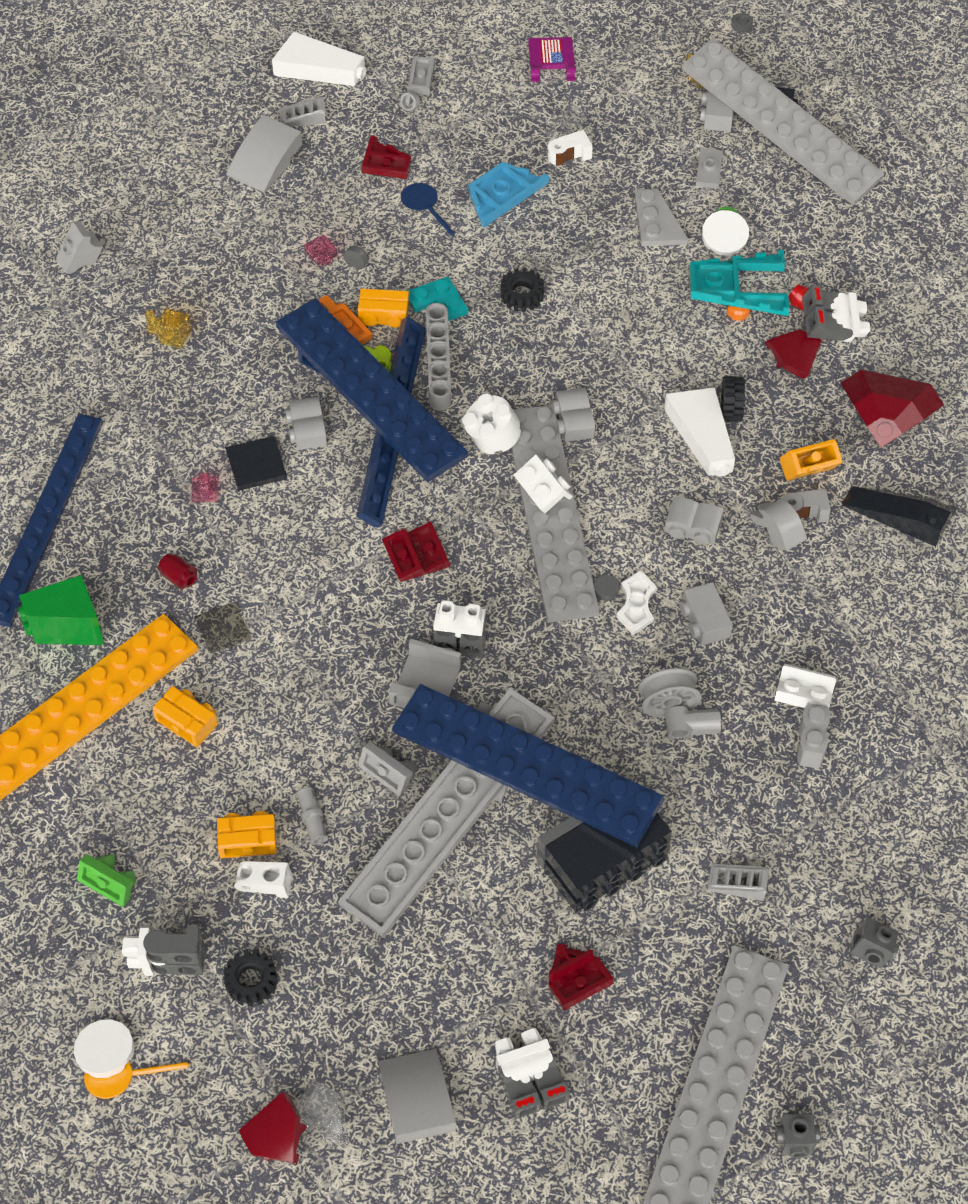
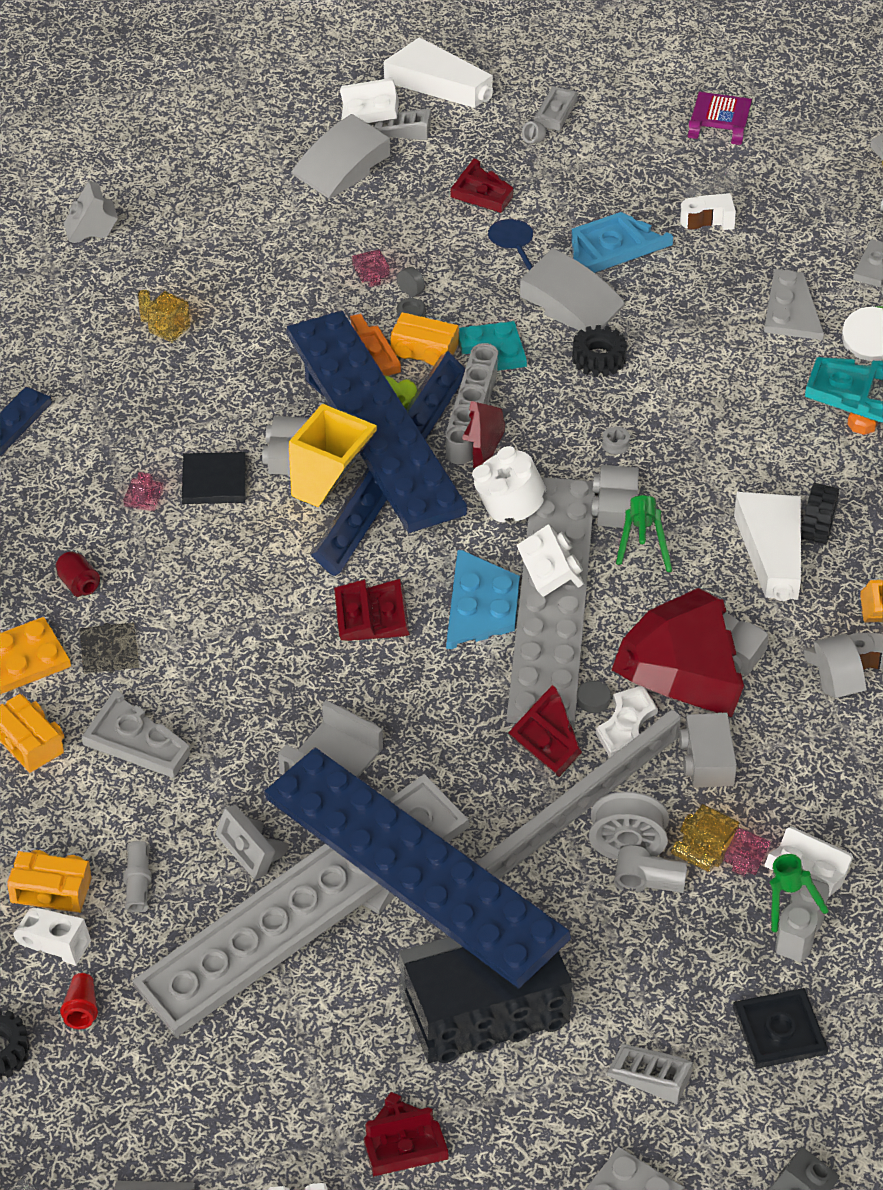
camera: 15 degrees right, 10 degrees down
(267, 700) = (133, 737): none -> light grey wing
(271, 98) = (371, 100): none -> white bracket
(303, 928) = (80, 1002): none -> red cone
(346, 428) = (325, 452): none -> yellow slope
(362, 280) = (411, 306): none -> dark grey tile
(457, 381) = (484, 430): none -> dark red slope
(460, 622) = (391, 699): white hips -> none
(485, 242) = (570, 292): none -> light grey slope
(497, 525) = (481, 600): none -> dark azure wing
(557, 358) = (613, 433): none -> light grey bush
(584, 627) = (548, 733): none -> dark red wing
(603, 428) = (643, 514): none -> green plant
(624, 674) = (581, 796): none -> light grey tile
(668, 540) = (684, 653): none -> dark red brick
(725, 687) = (705, 838): none -> clear yellow brick
(758, 691) = (746, 852): none -> clear pink tile
(804, 711) = (790, 878): none -> green plant
(819, 824) = (780, 1028): none -> black tile

